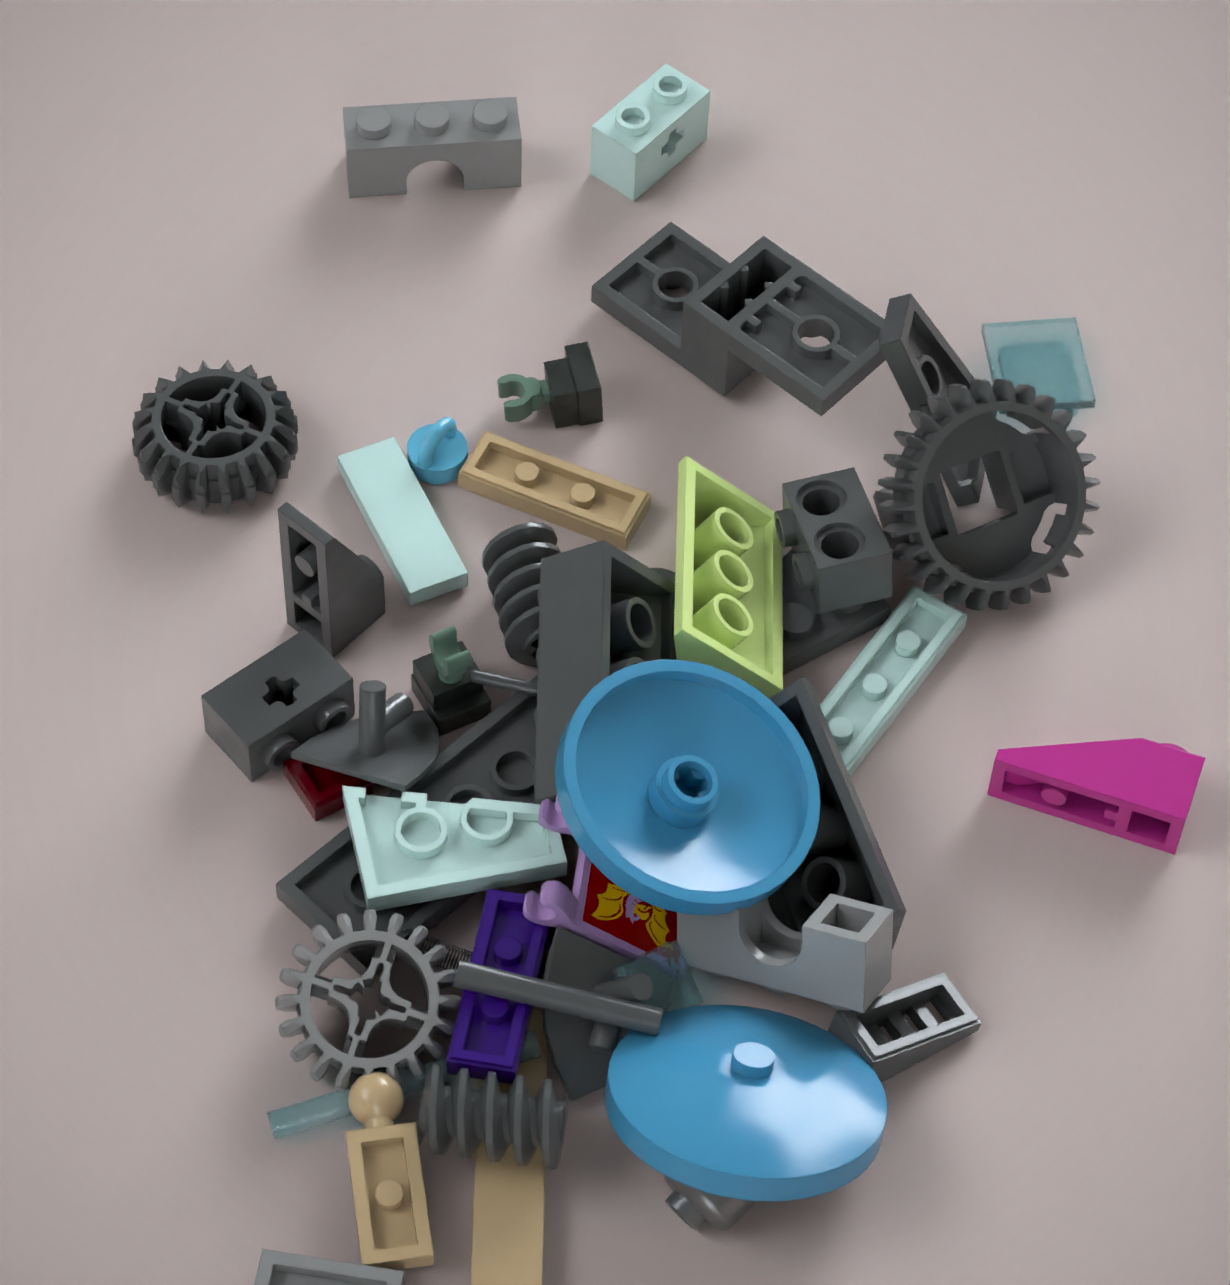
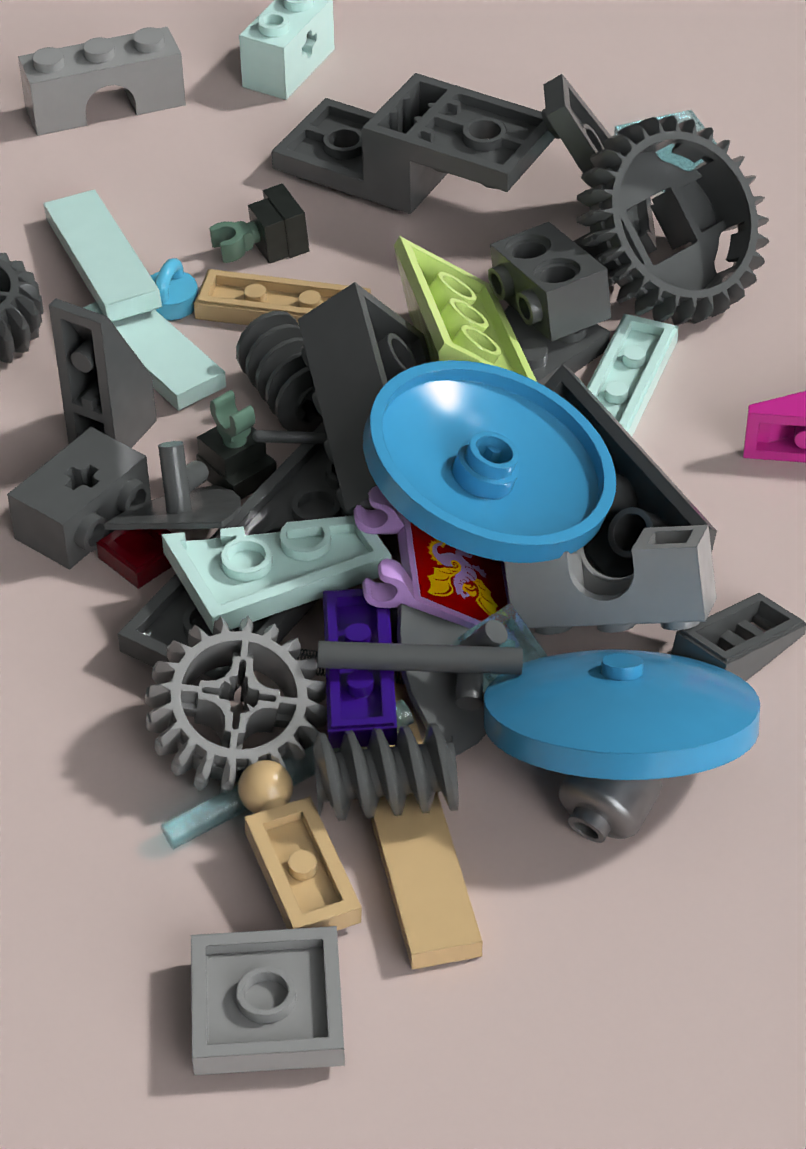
camera: 10 degrees left, 10 degrees down
(375, 390) = (102, 256): none -> light aqua tile

